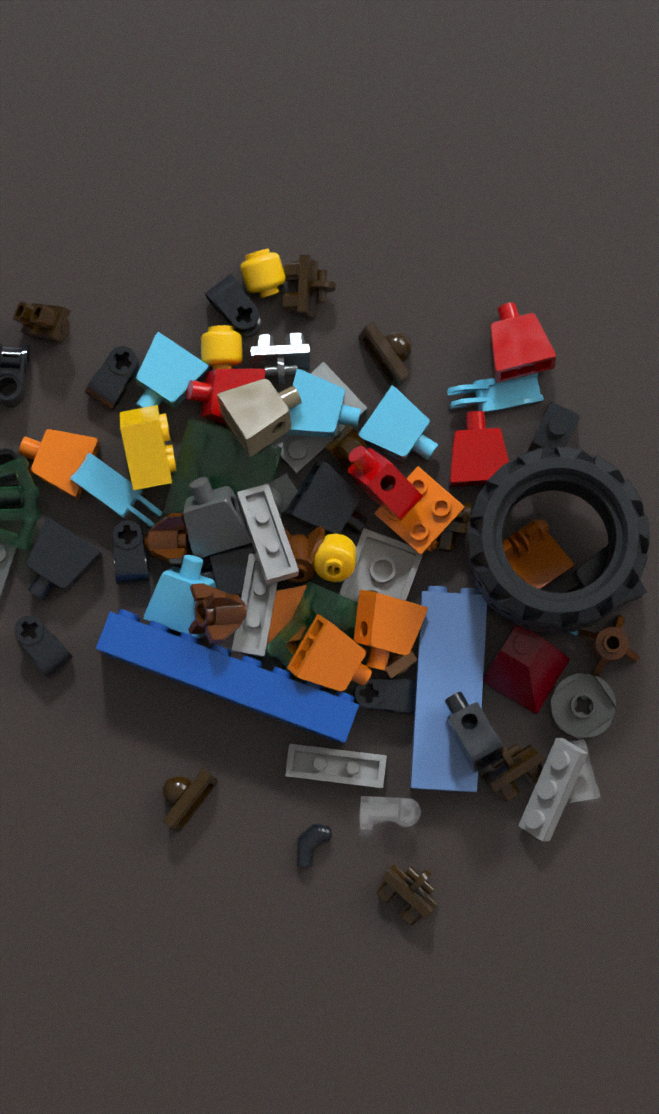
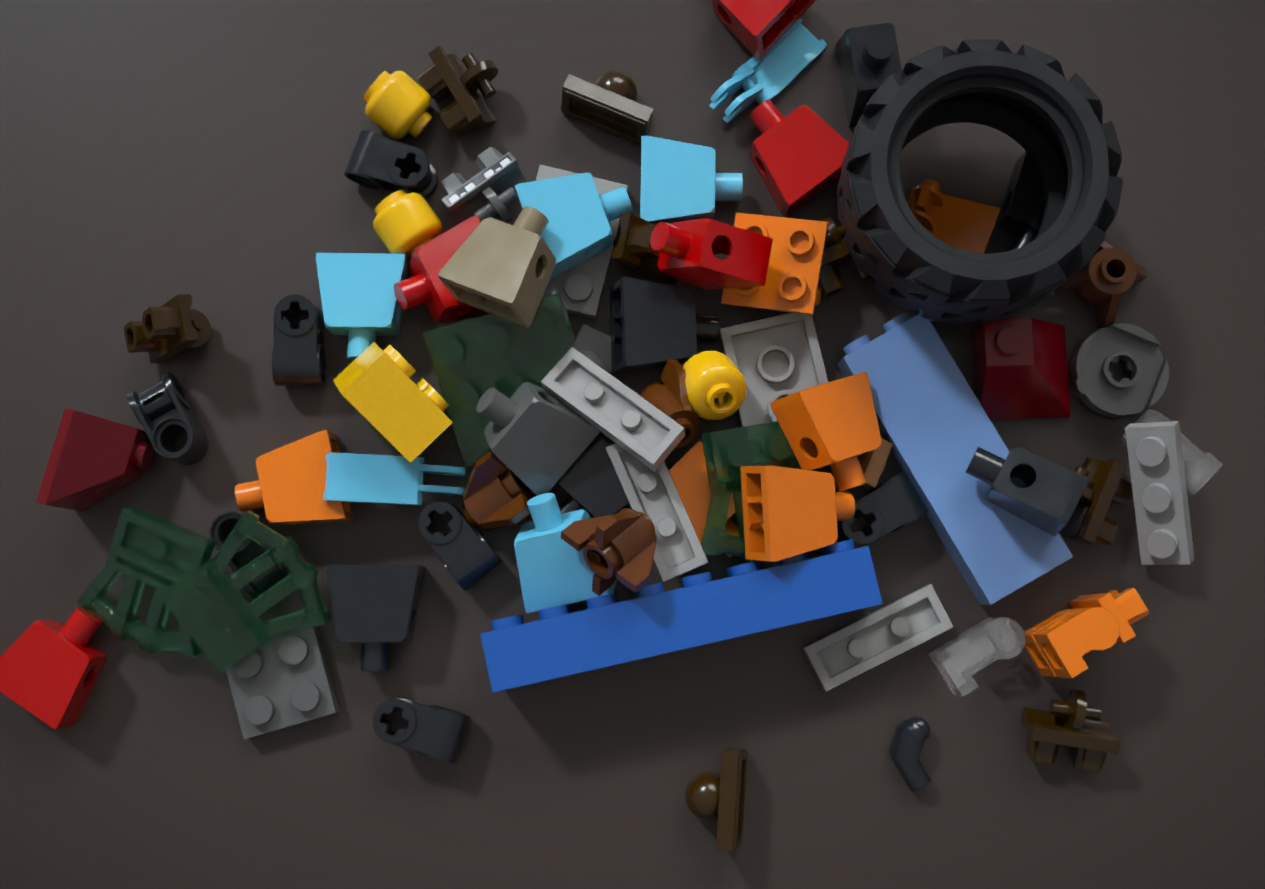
camera: 25 degrees left, 0 degrees up
(454, 836) = (1091, 624): none -> orange hips

